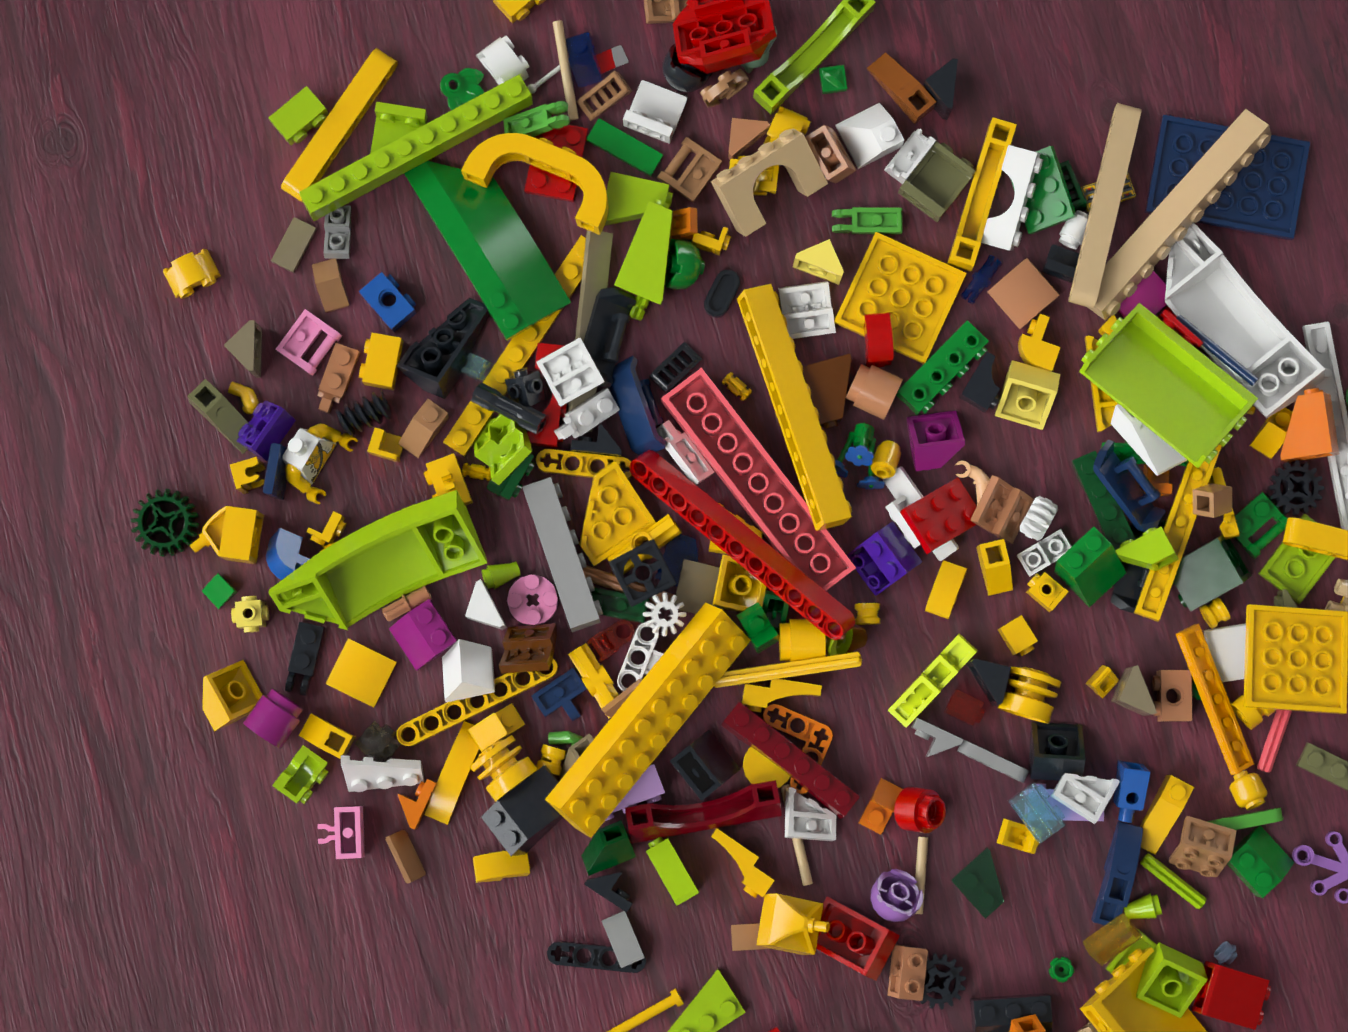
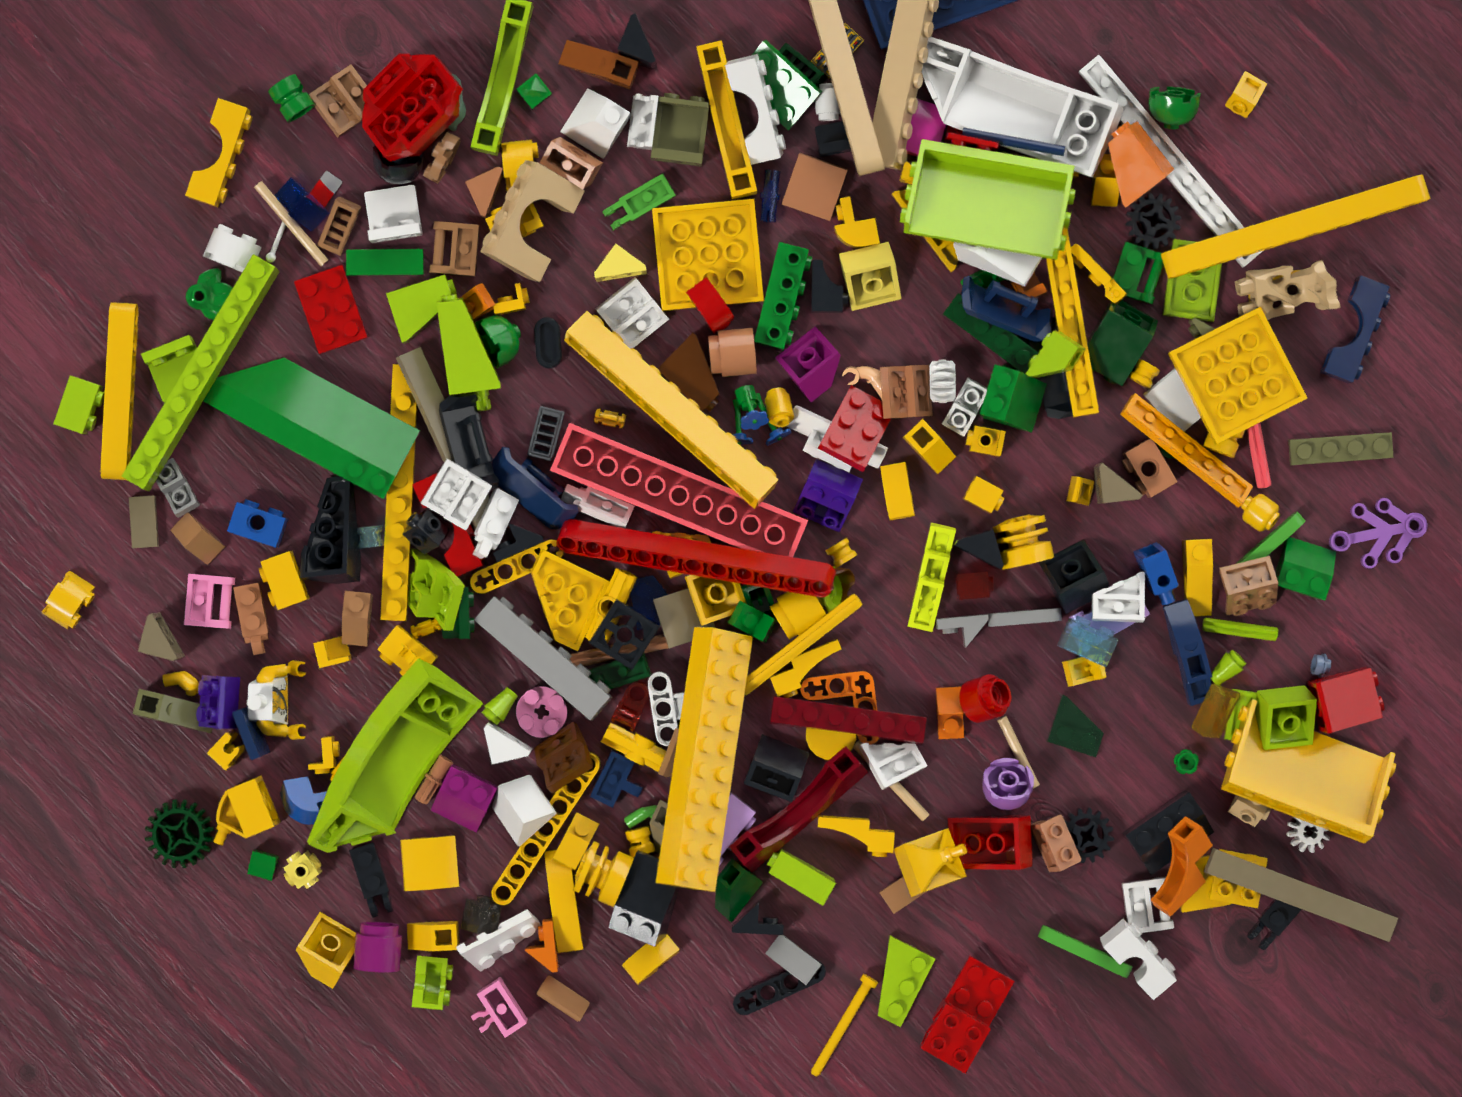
camera: 25 degrees left, 5 degrees up
(364, 413) = (296, 635): black piece -> none
(523, 415) = (439, 557): black axle -> none
(538, 119) = (292, 287): bright green hinge -> none
(542, 154) = (273, 335): yellow arch -> none
(662, 622) = (665, 669): white gear -> none
(1212, 500) = (1085, 279): medium nougat brick -> none

